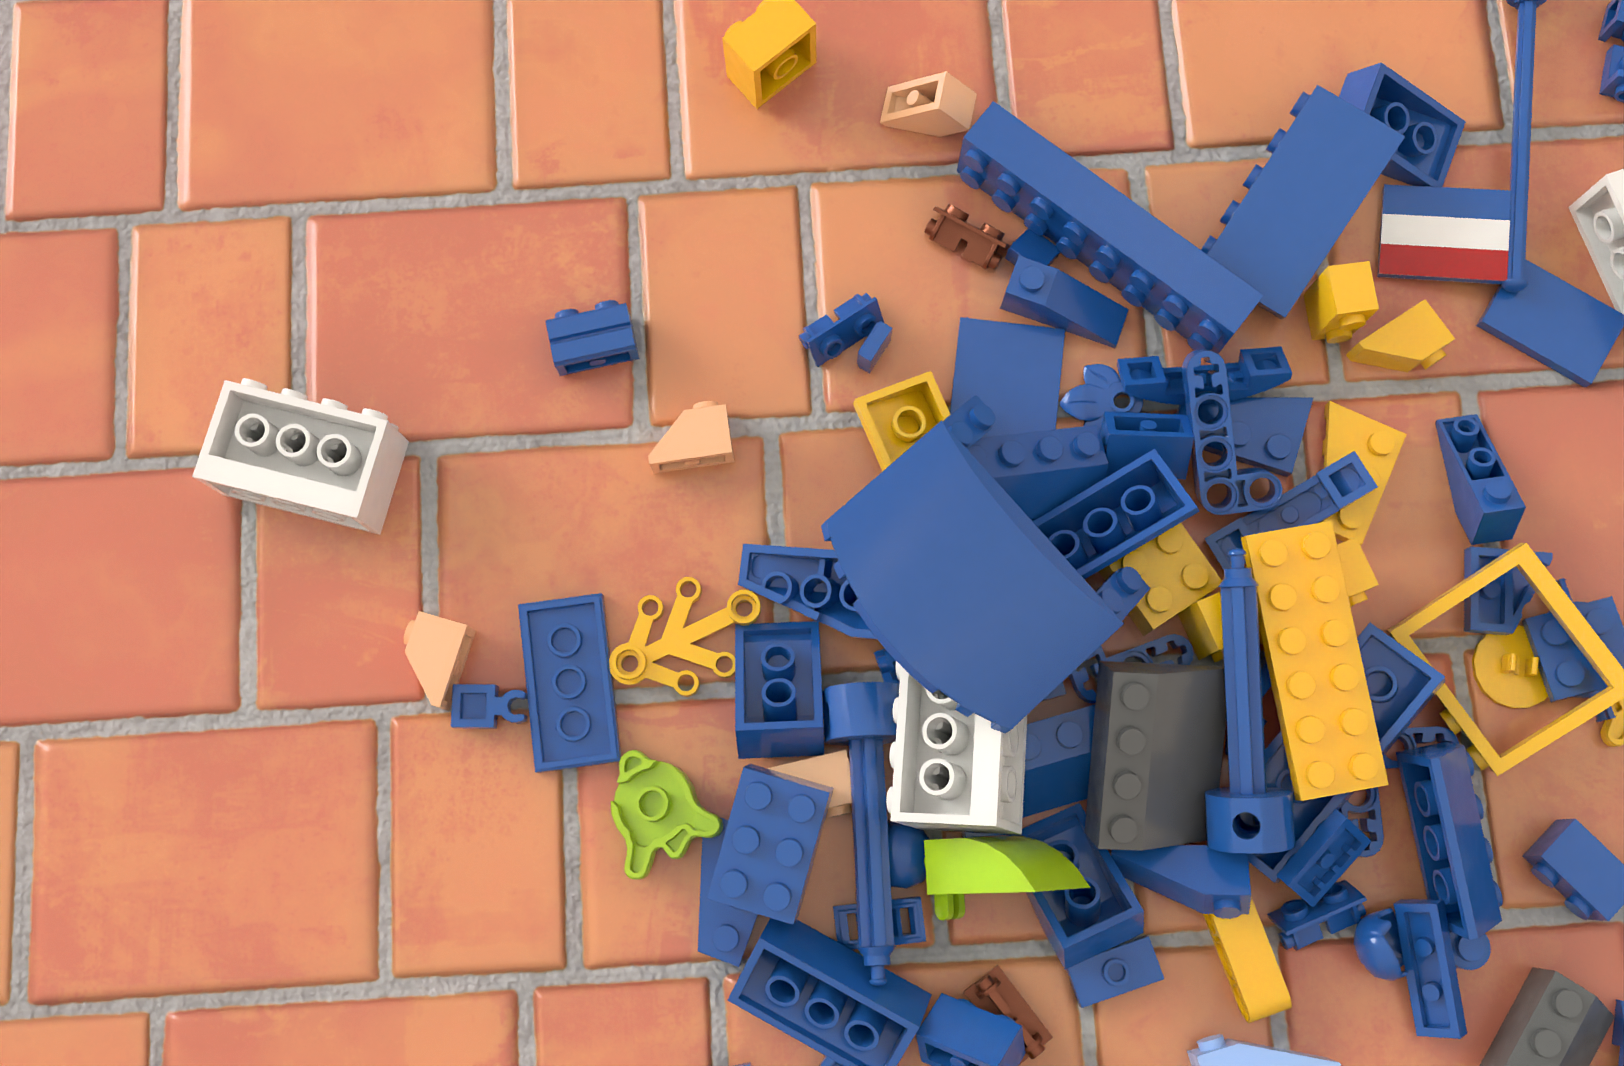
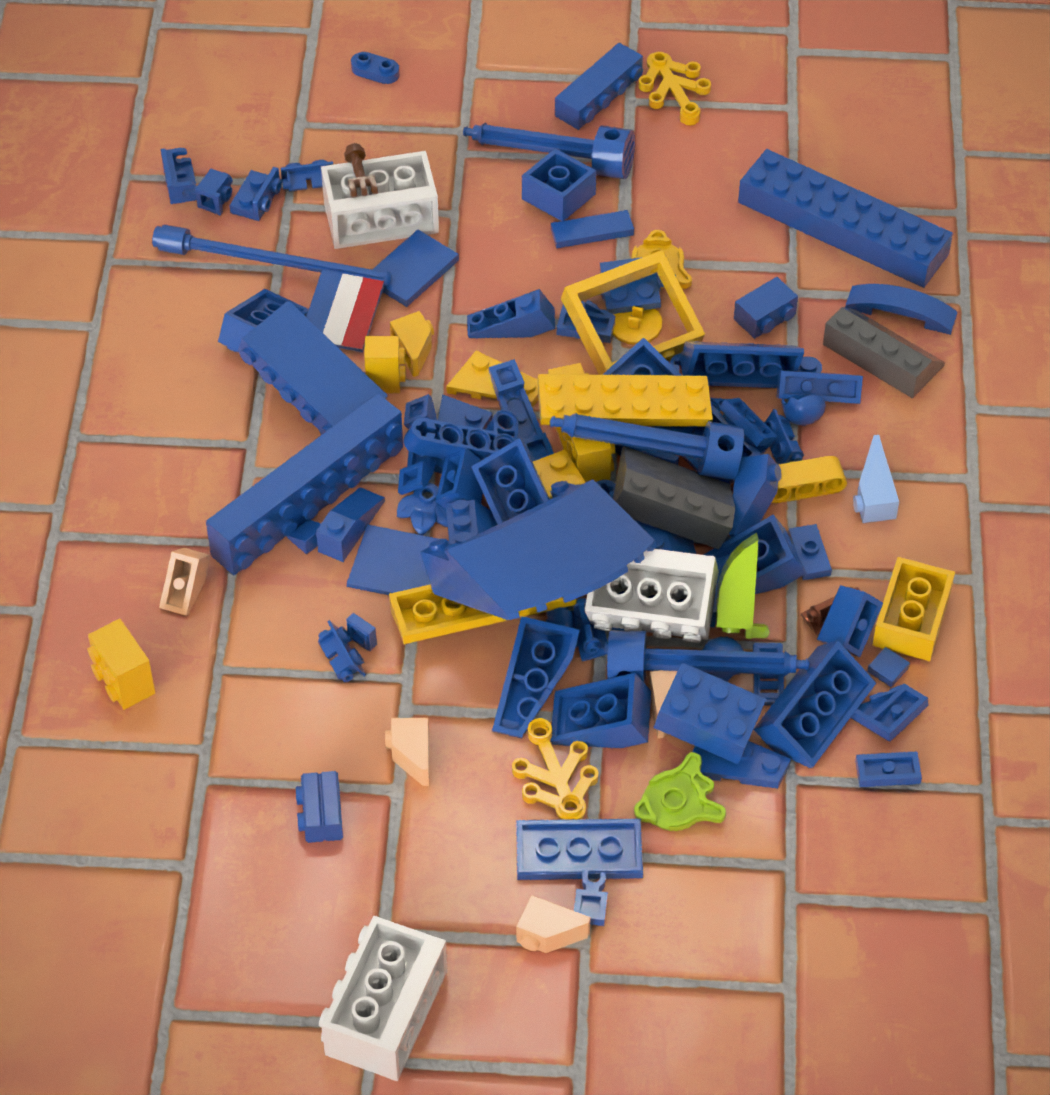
camera: 85 degrees left, 25 degrees down
(953, 228) = (295, 561): copper hinge -> none

